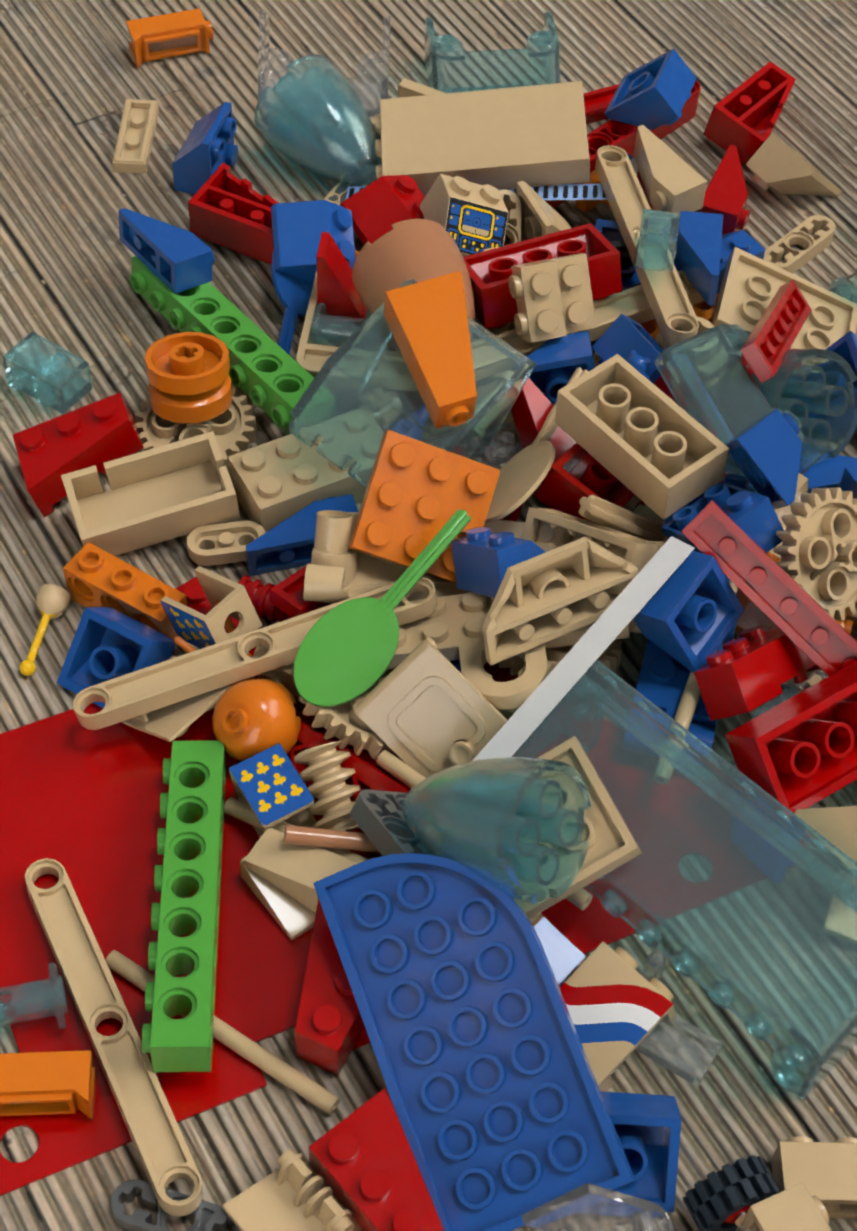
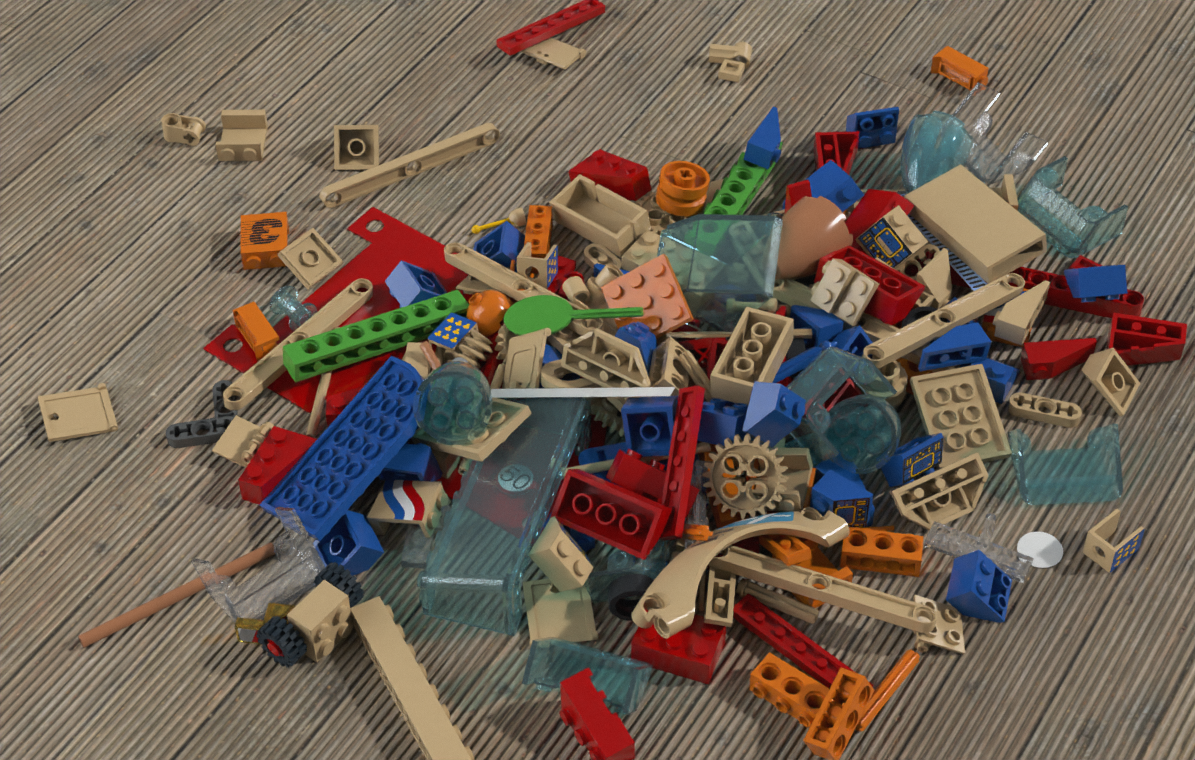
camera: 65 degrees right, 5 degrees down
(47, 372) = (660, 145): clear light blue brick -> none
(114, 803) = (413, 284): none -> slope
(135, 136) = (871, 97): tan tile -> none
(435, 343) = (735, 245): orange slope -> none
(656, 240) = (920, 311): clear light blue brick -> none
(775, 332) = (902, 393): red plate -> none

